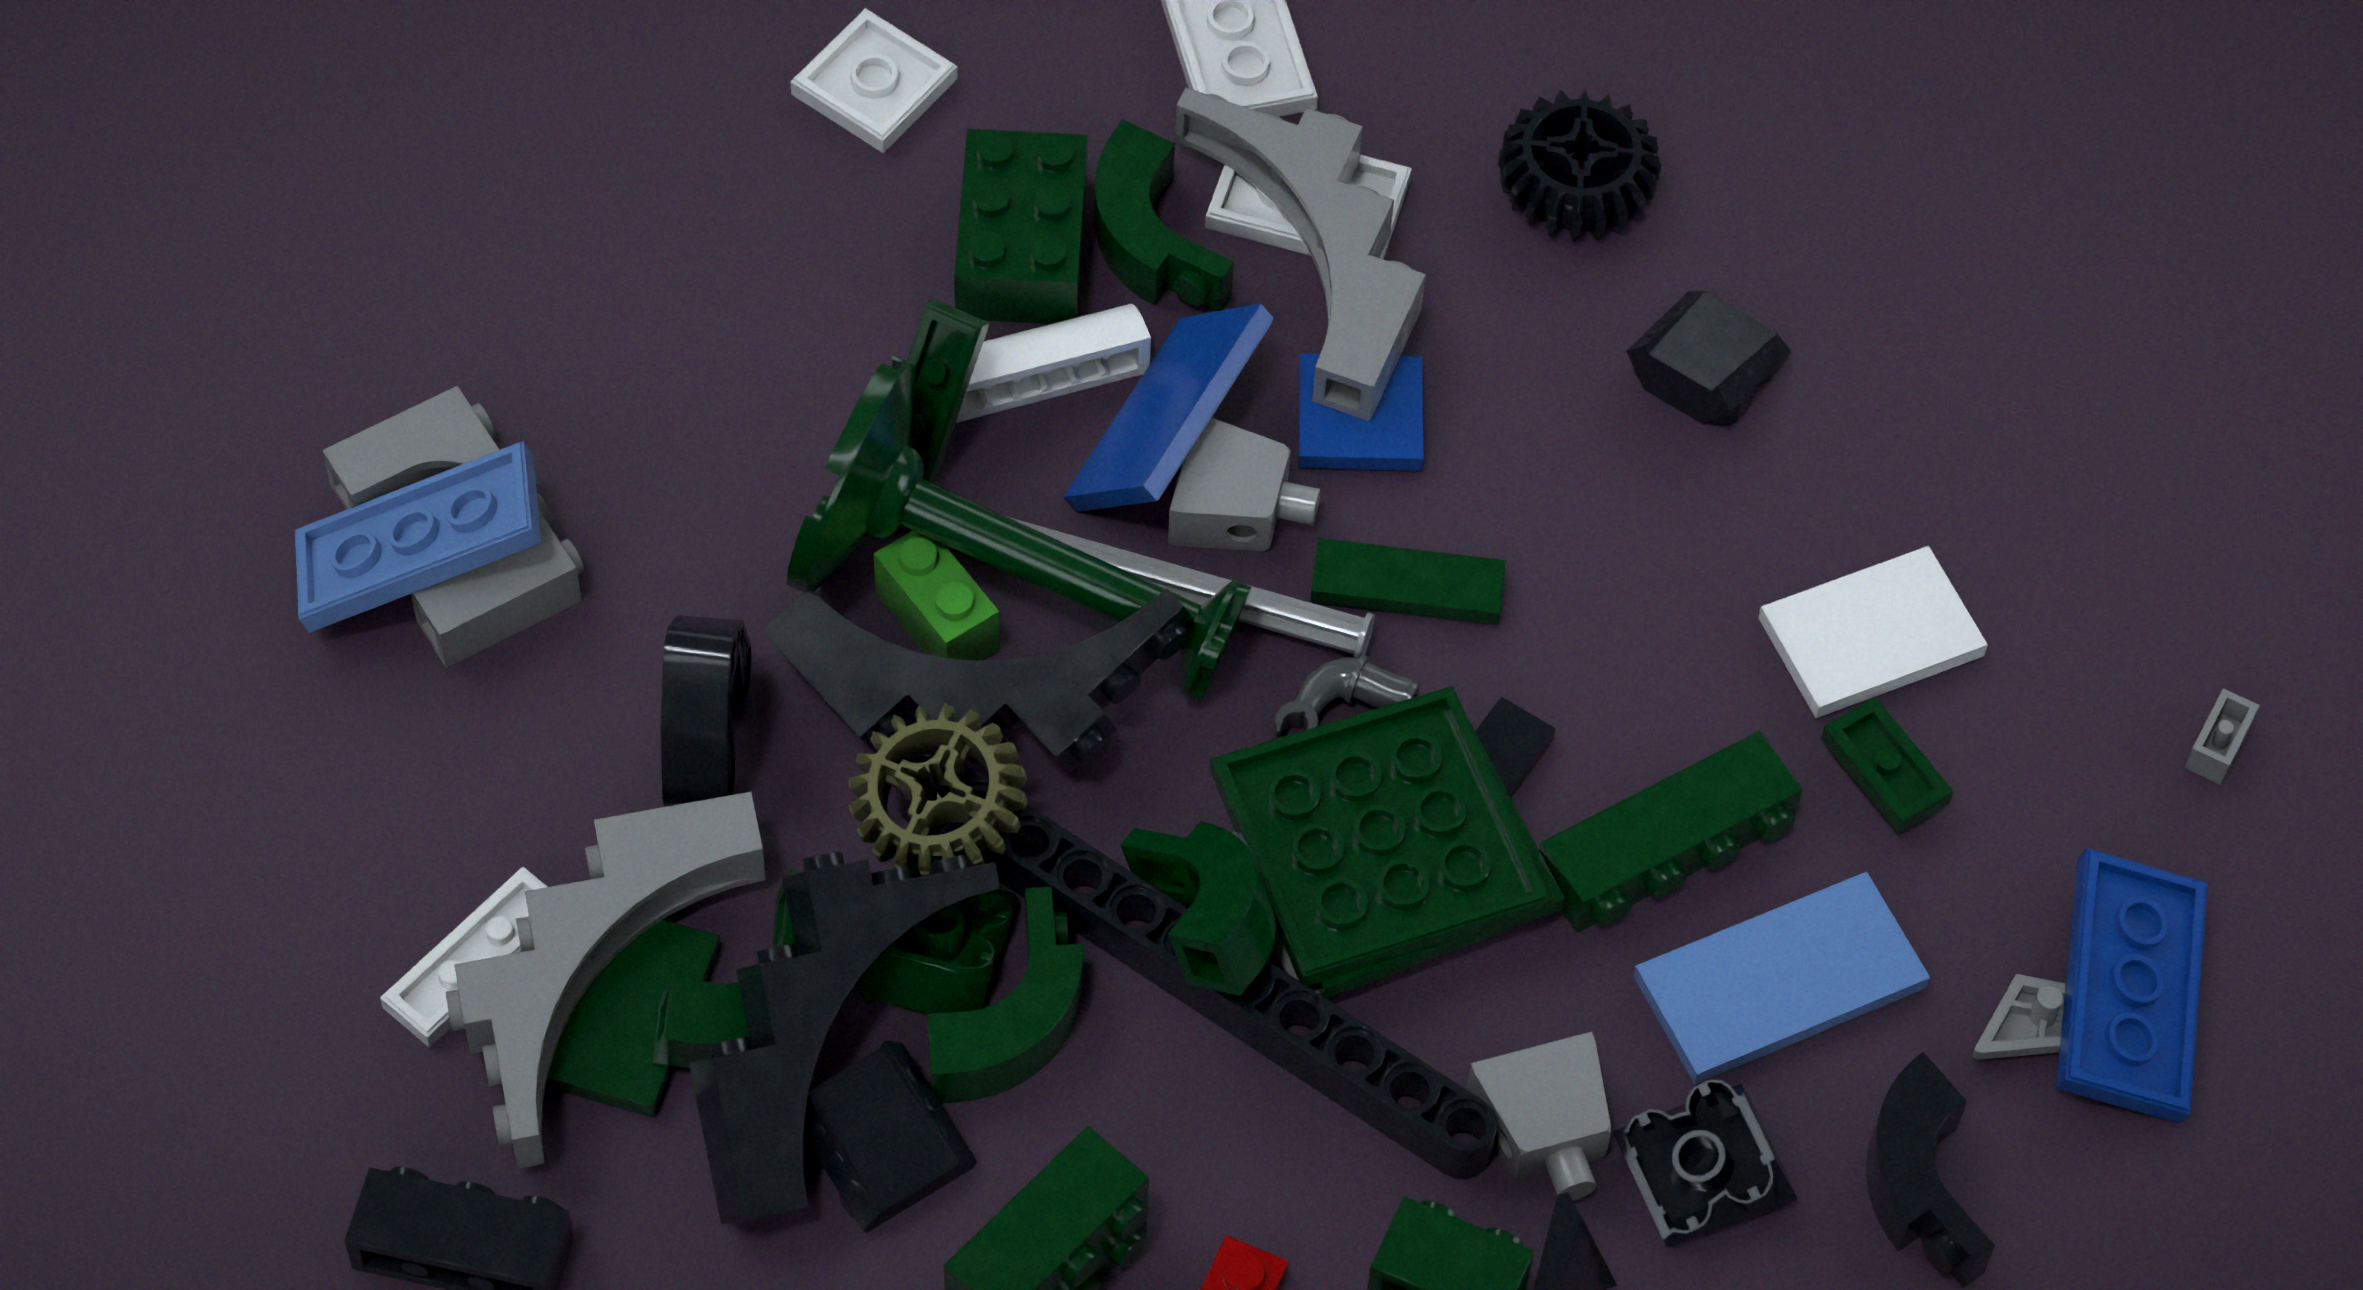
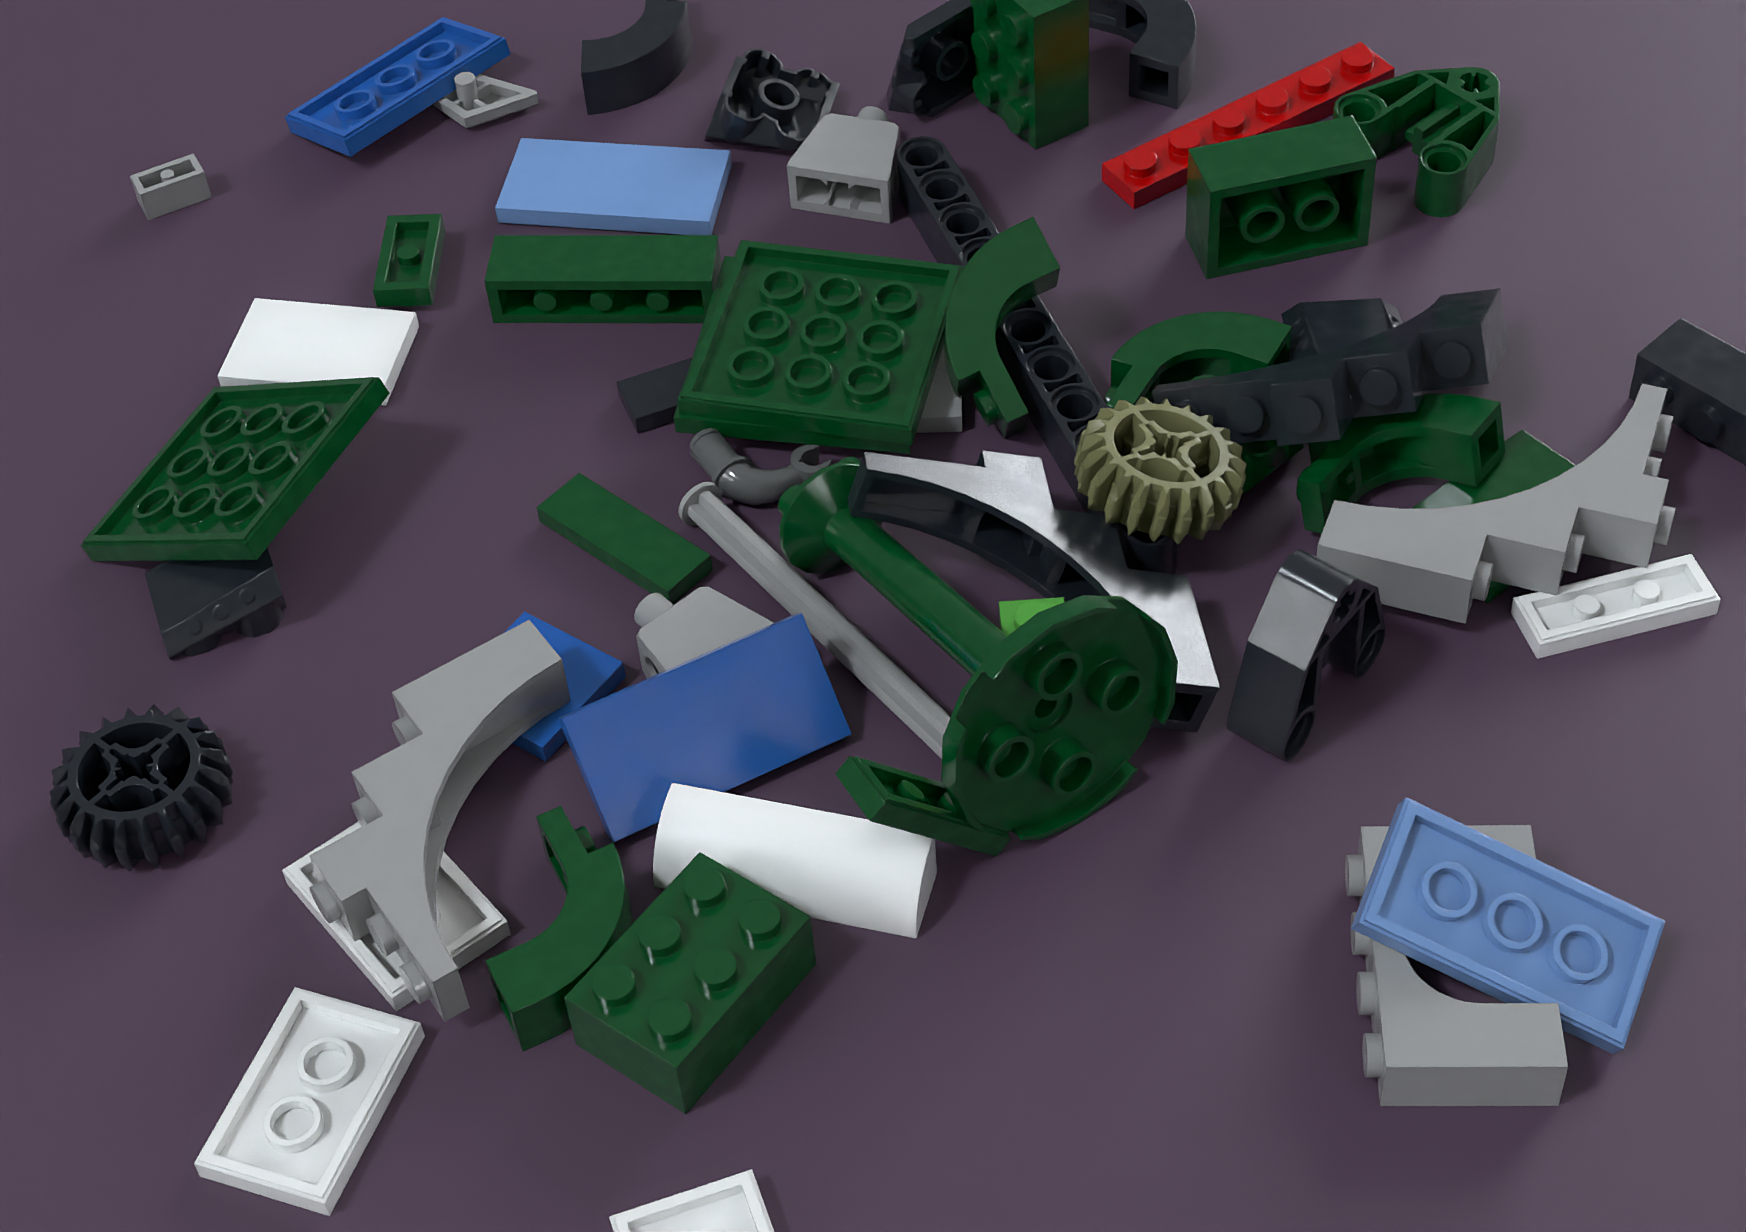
camera: 140 degrees left, 10 degrees down
(1781, 428) = (235, 471): none -> dark green tile

